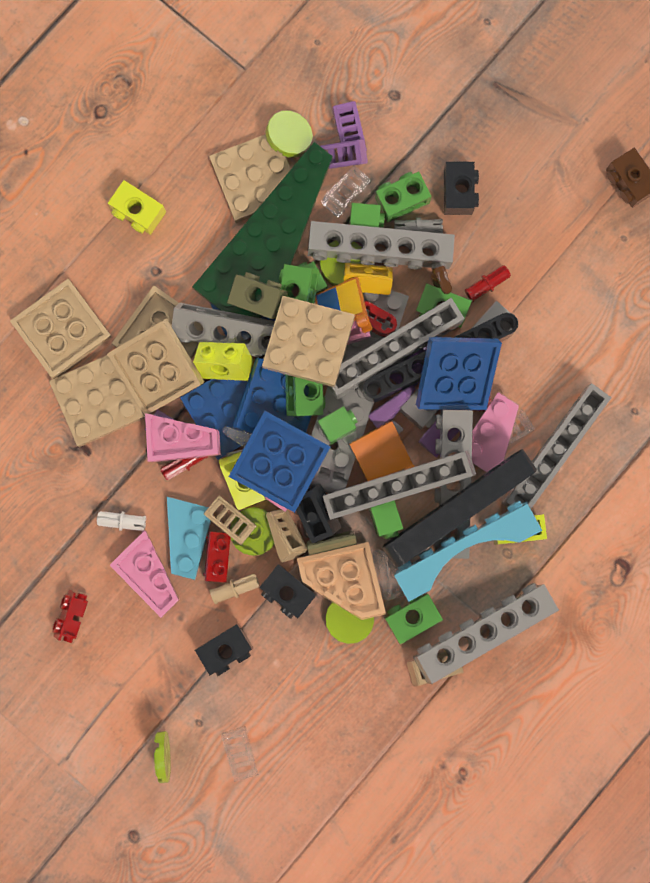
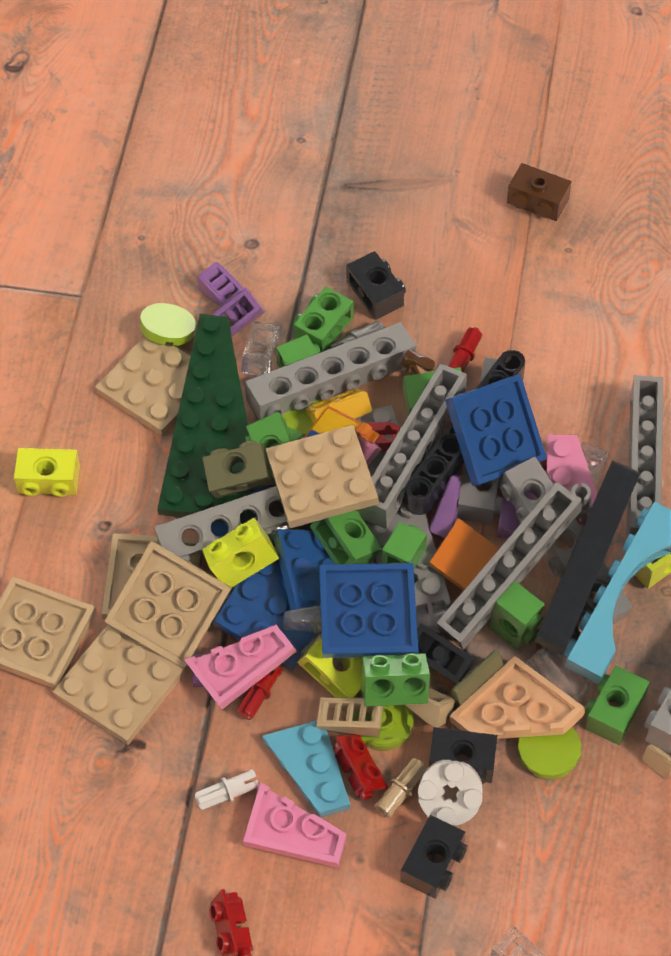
camera: 30 degrees left, 25 degrees down
(254, 624) = (452, 774): none -> white plate
(269, 520) = (395, 679): none -> bright green brick
(488, 463) = (584, 495): none -> light grey pin

